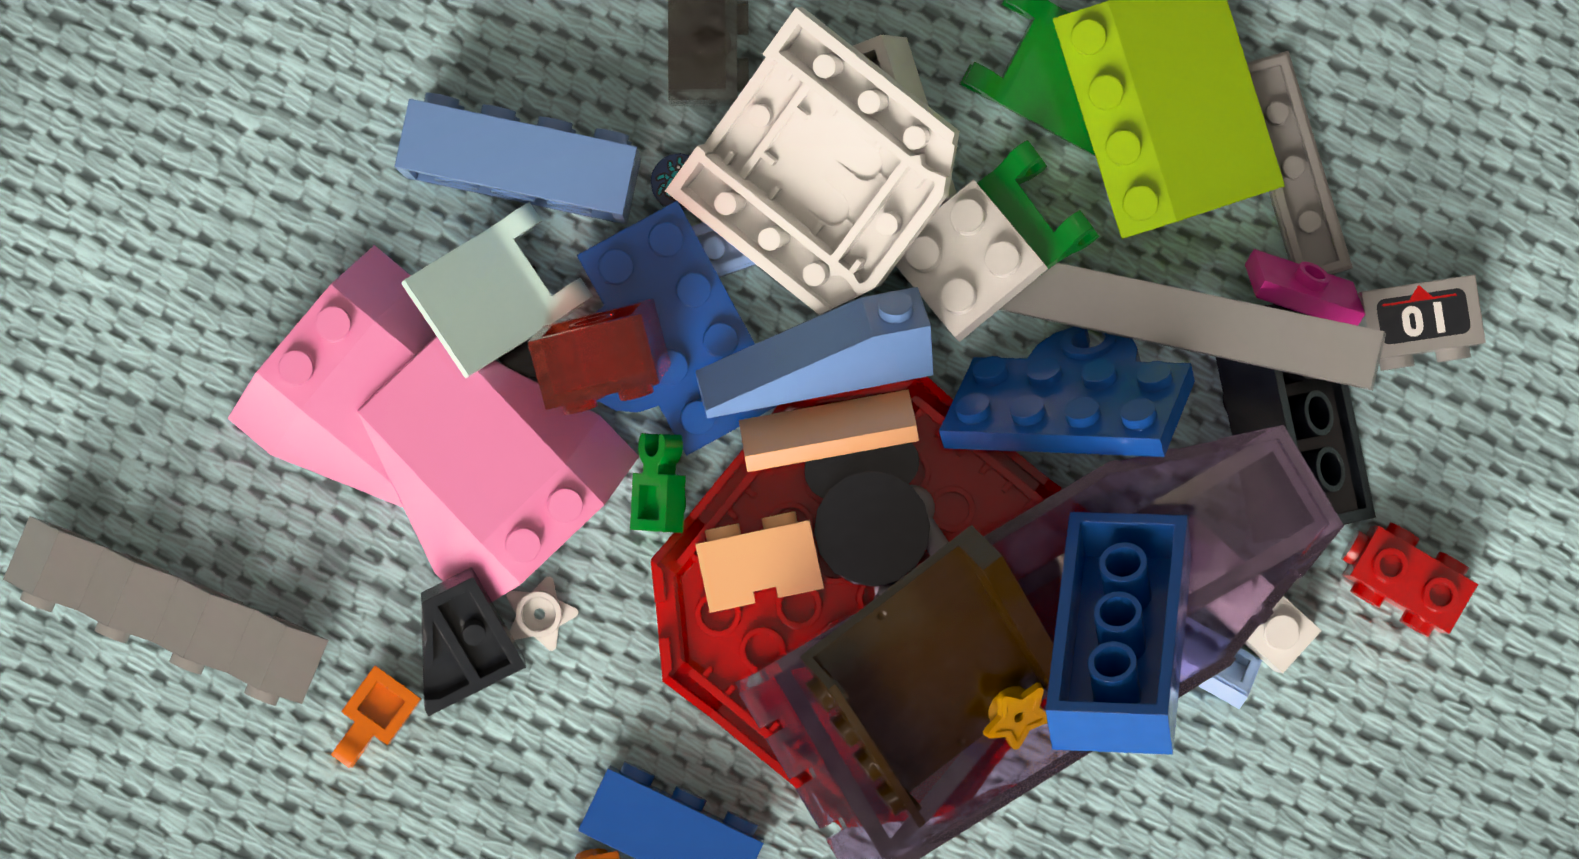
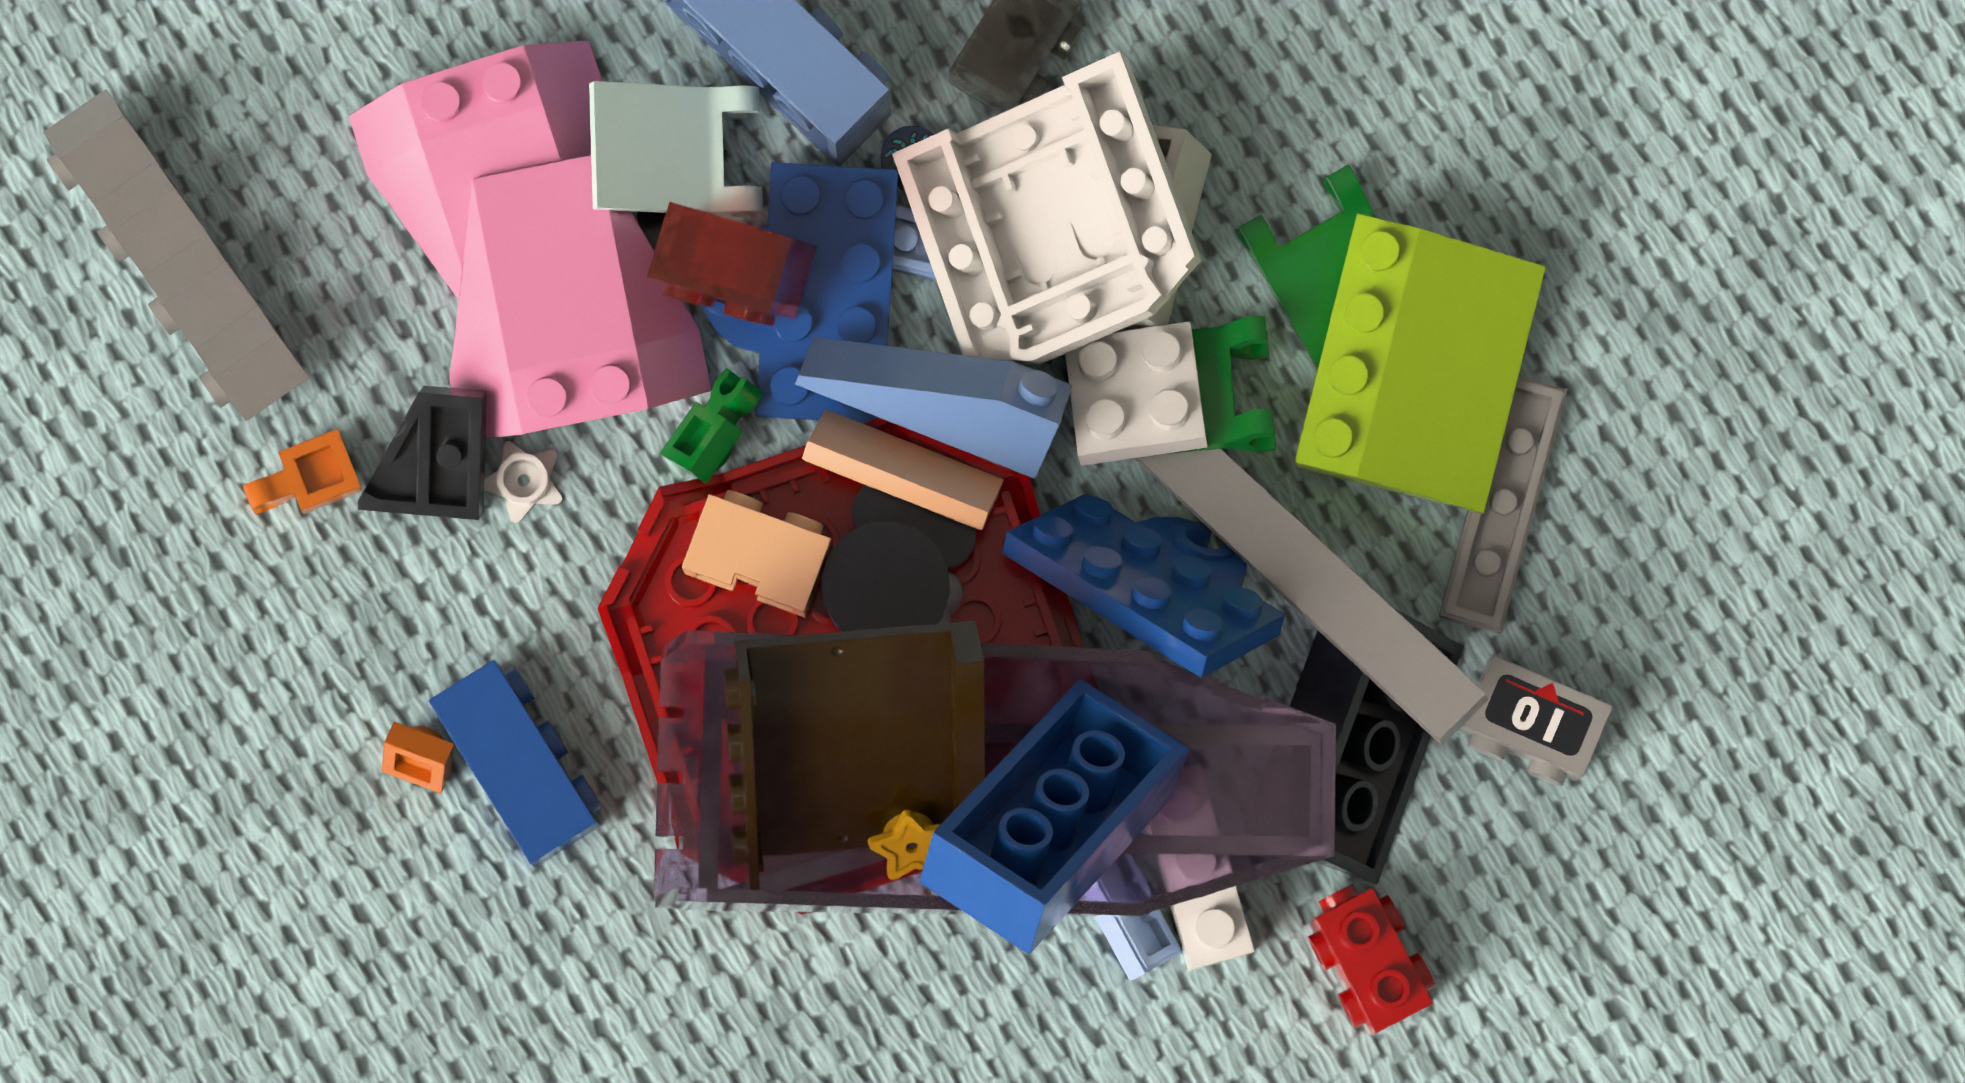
camera: 30 degrees right, 5 degrees down
(1303, 288) = (1440, 616): dark pink plate -> none

